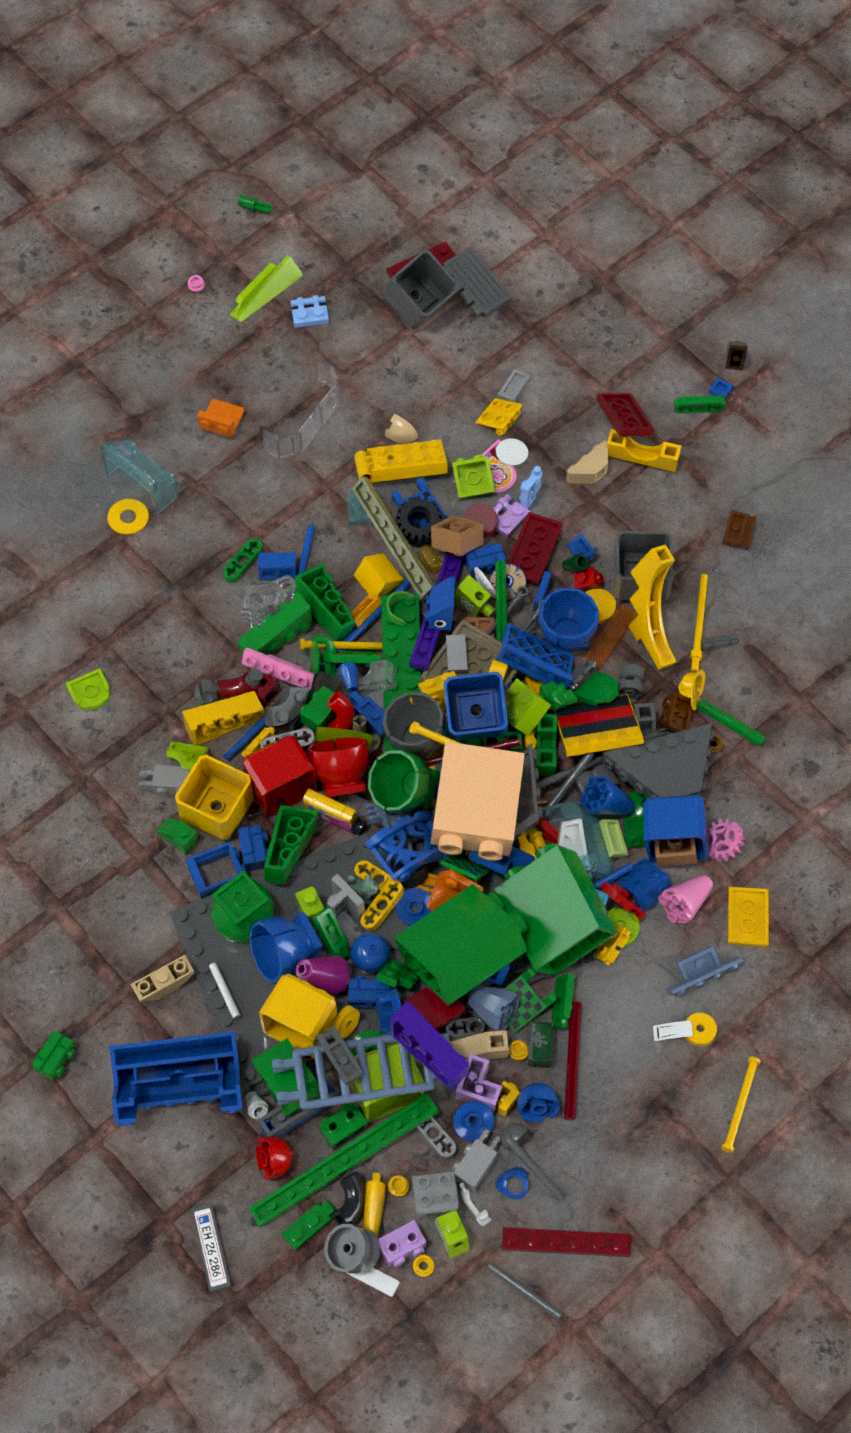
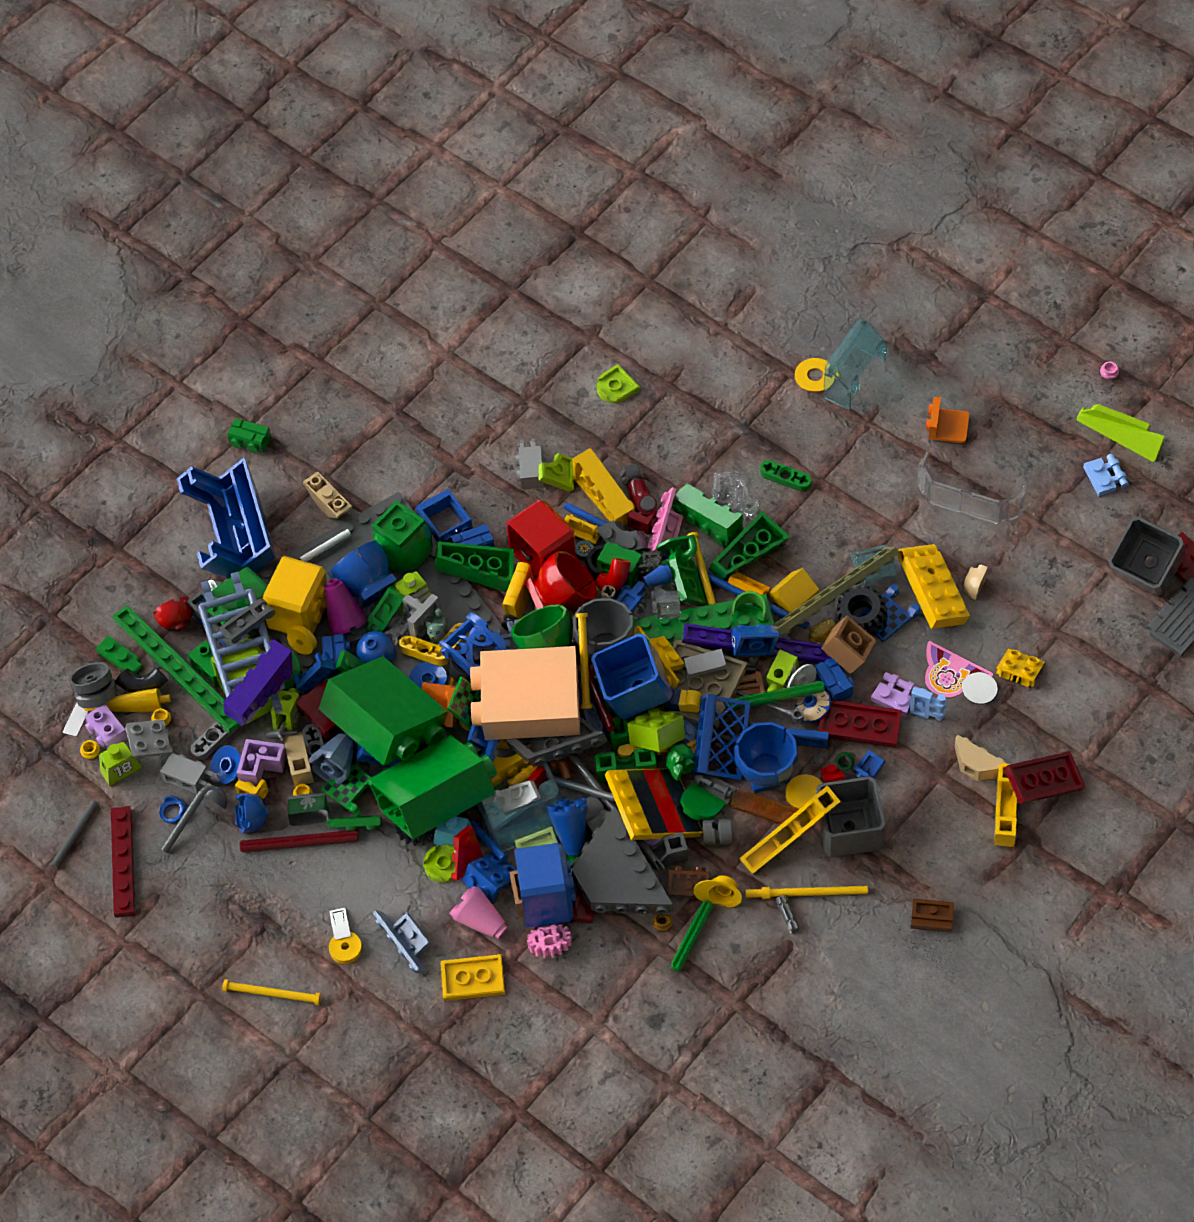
camera: 85 degrees right, 5 degrees down
(178, 835) = (475, 483): green slope -> none
(210, 1248) = (92, 587): tile -> none
(214, 783) = (505, 484): yellow plate -> none
(276, 565) = (784, 503): blue hinge -> none
(300, 733) = (590, 549): light grey beam -> none
(306, 549) = (809, 526): blue bar -> none
(331, 733) = (596, 579): lime sticker -> none
(473, 476) = (932, 652): lime plate -> none
(481, 1217) = (139, 789): white piece -> none
(484, 514) = (879, 668): dark red tile -> none
(513, 386) = (1063, 676): light grey tile -> none
(606, 951) = (426, 856): yellow hinge -> none
(691, 404) = (1088, 856): green beam -> none
(720, 388) = (1118, 877): blue tile -> none
(736, 355) = (1166, 881): dark brown slope -> none

